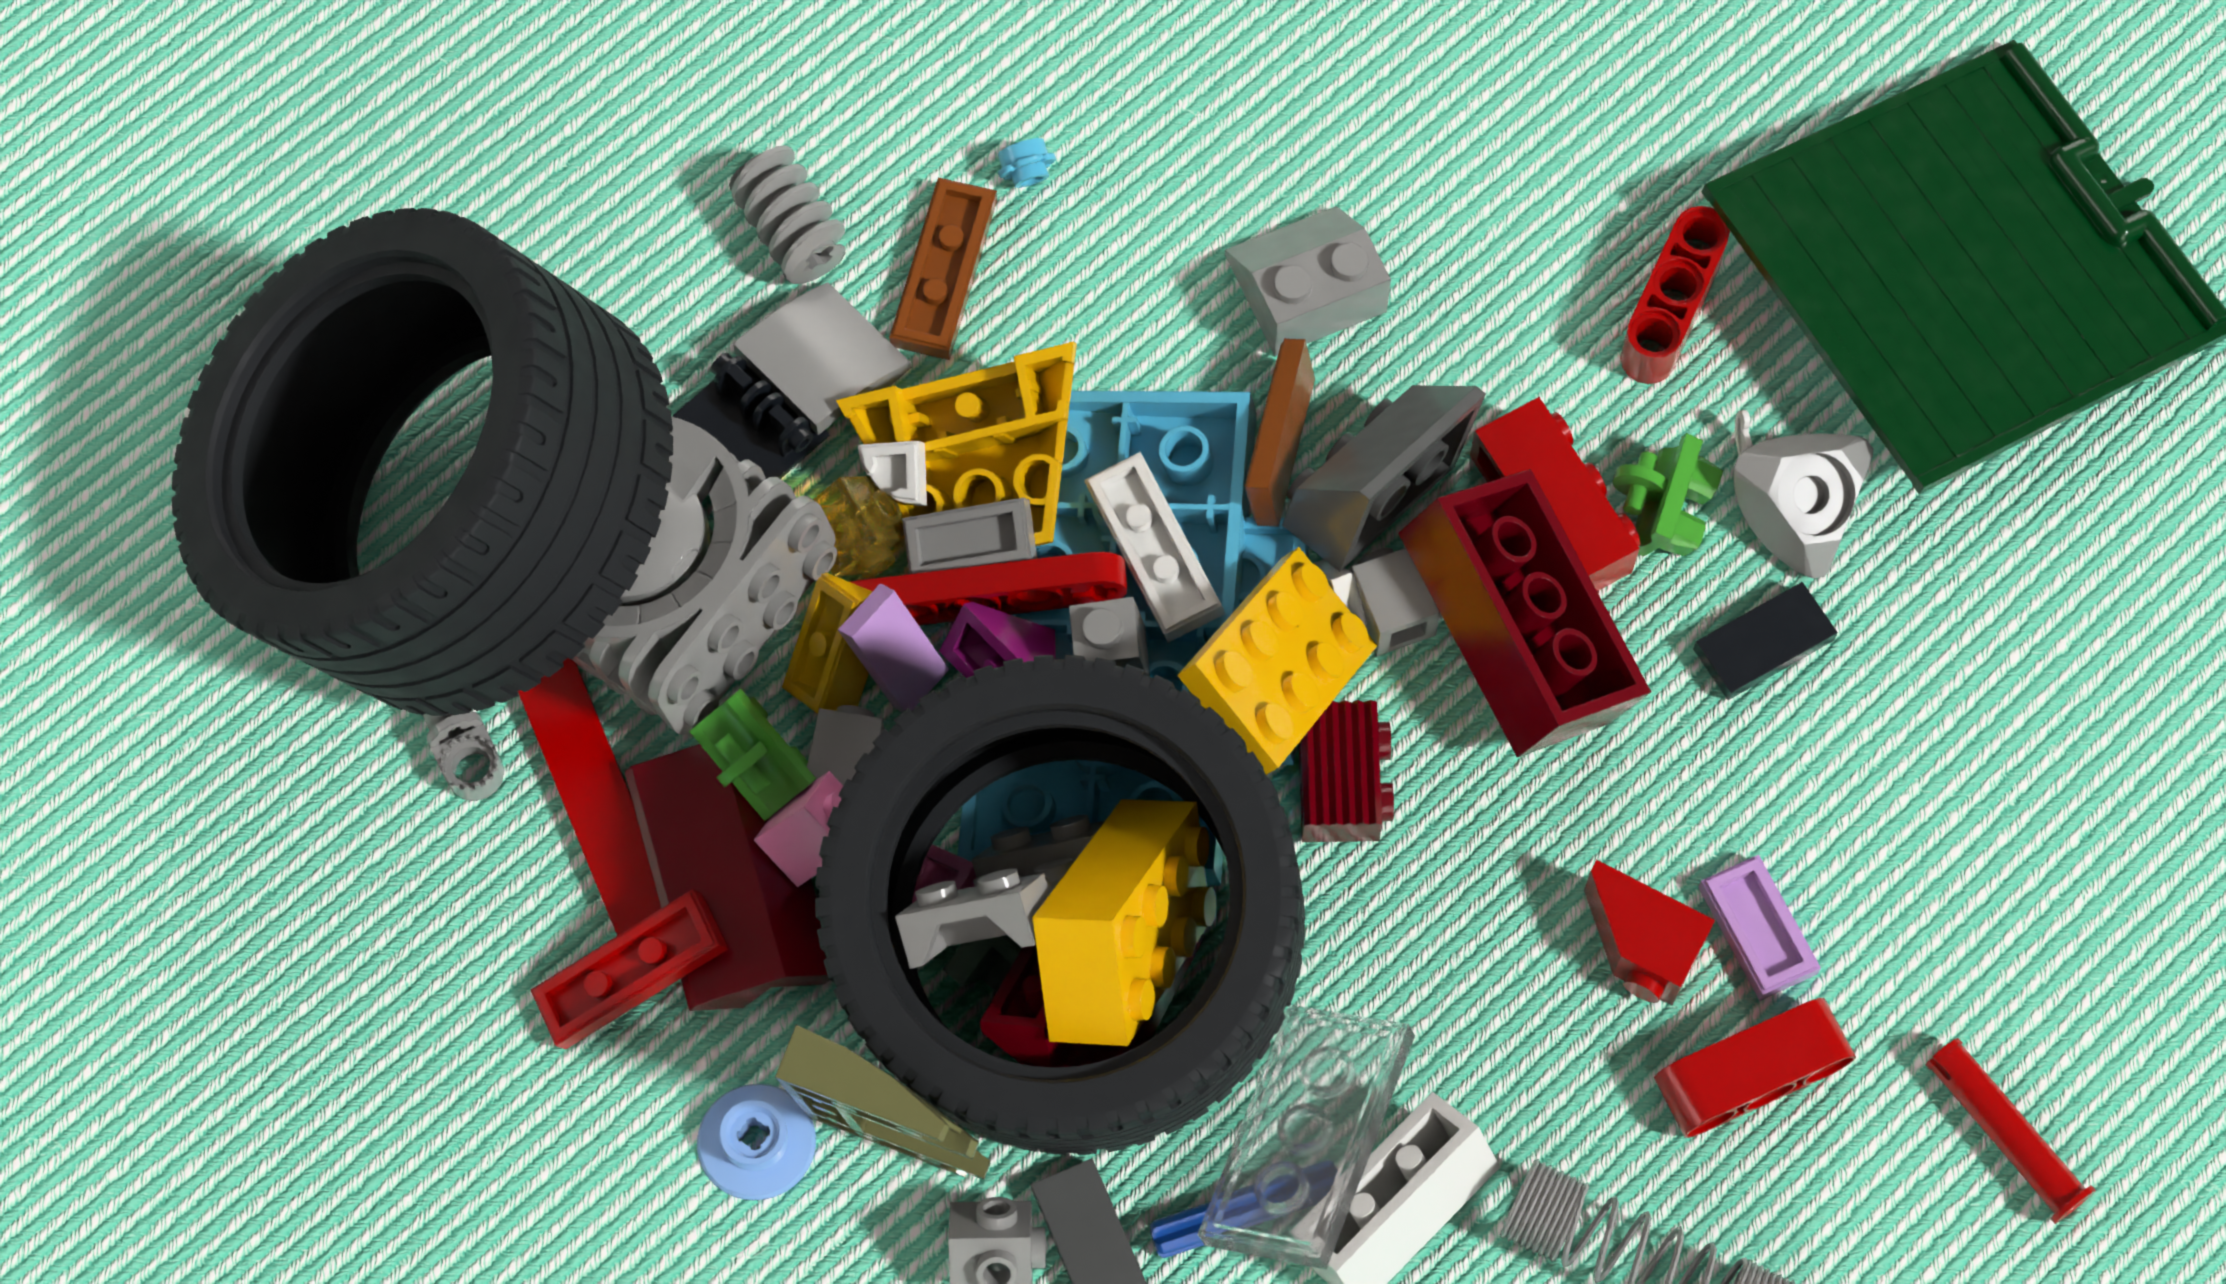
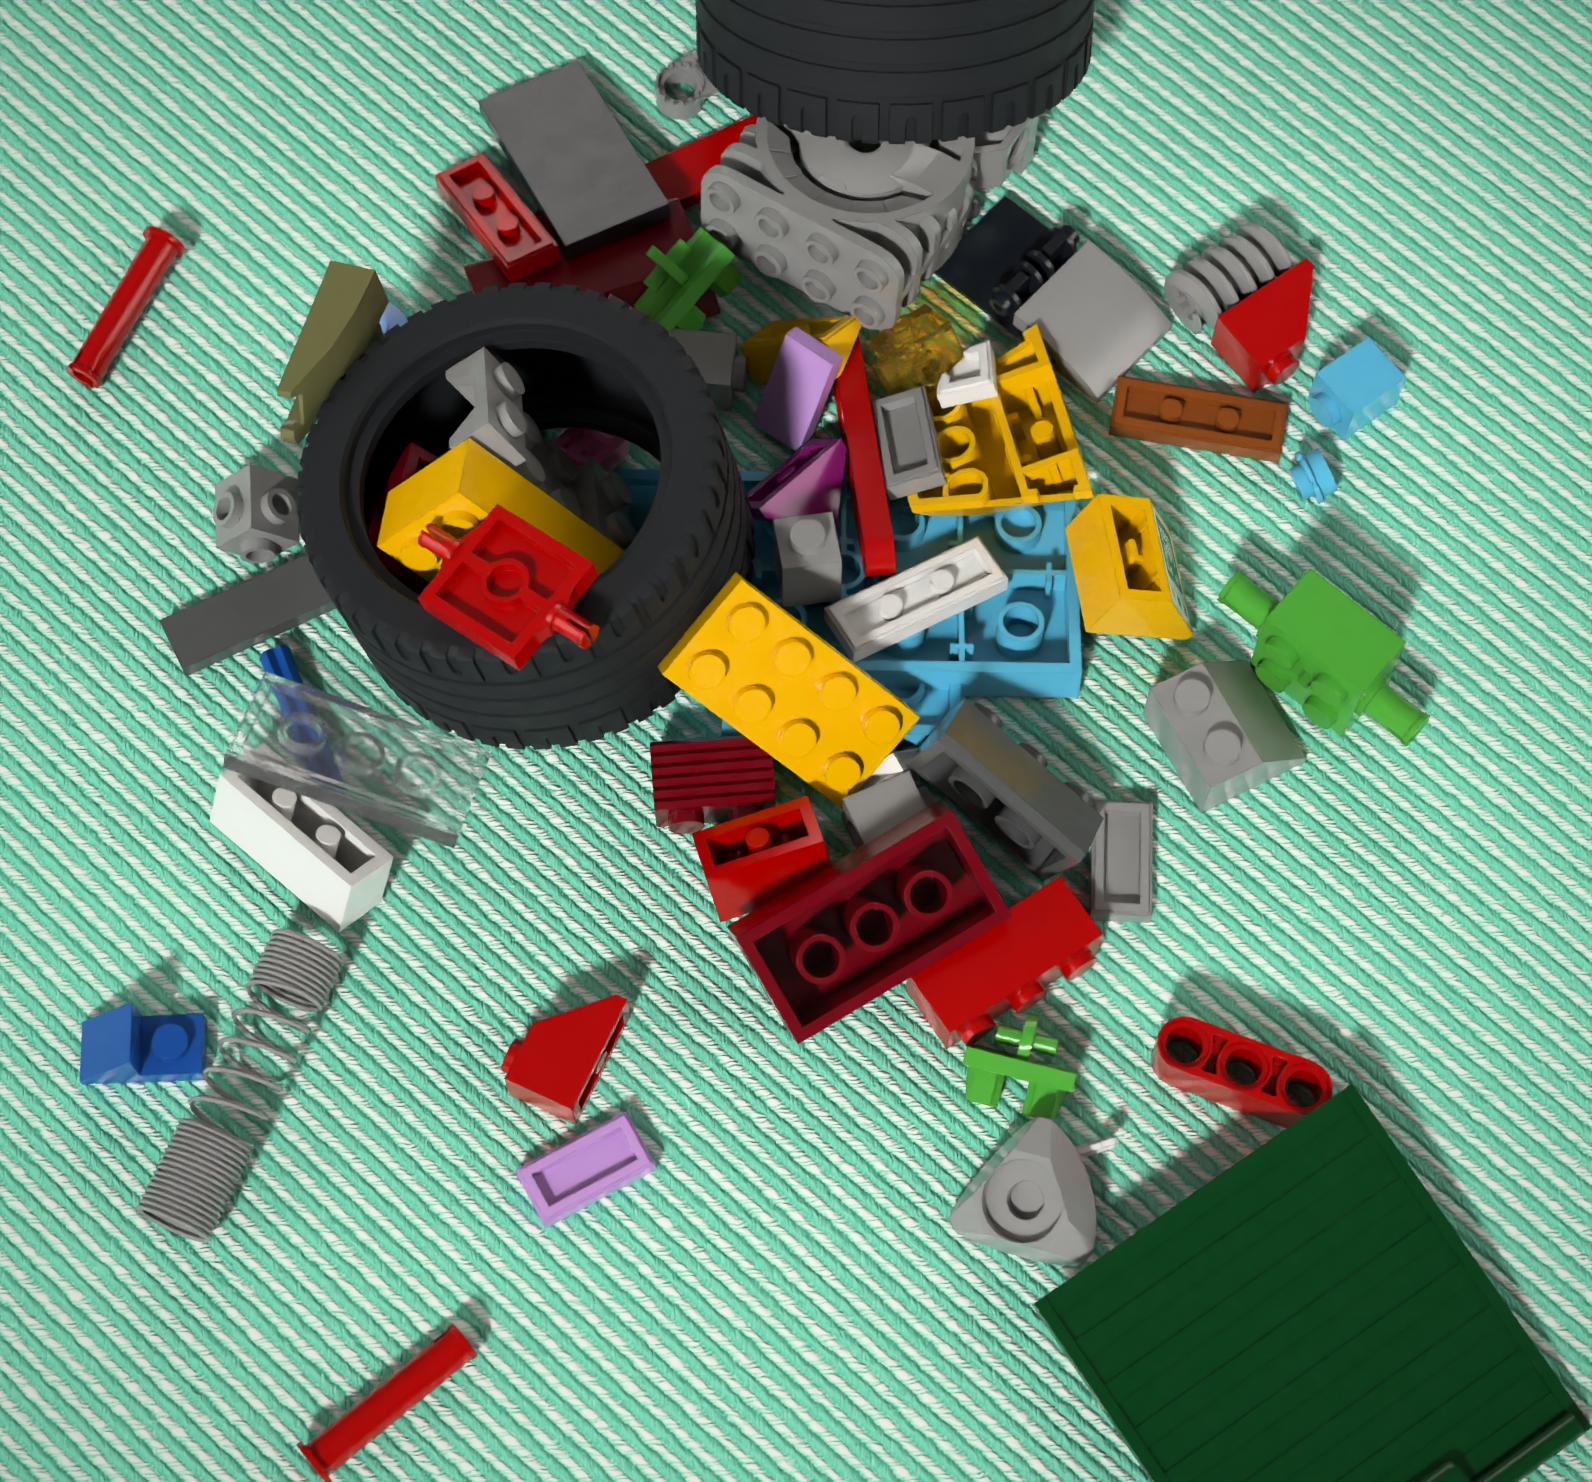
camera: 85 degrees right, 0 degrees up
(560, 881) = (574, 159): none -> tile
(856, 179) = (1267, 329): none -> red slope
(931, 109) = (1355, 388): none -> medium azure brick
(1137, 341) = (1127, 570): none -> yellow slope
(1222, 877) = (508, 586): none -> red plate
(1244, 162) = (1325, 654): none -> bright green brick
(1280, 432) = (1049, 704): dark orange tile -> none
(1403, 369) = (1122, 862): none -> light grey tile
(1438, 719) = (760, 856): none -> red brick
(1754, 1067) = (441, 1161): red beam -> none
(1765, 640) = (879, 1172): black tile -> none

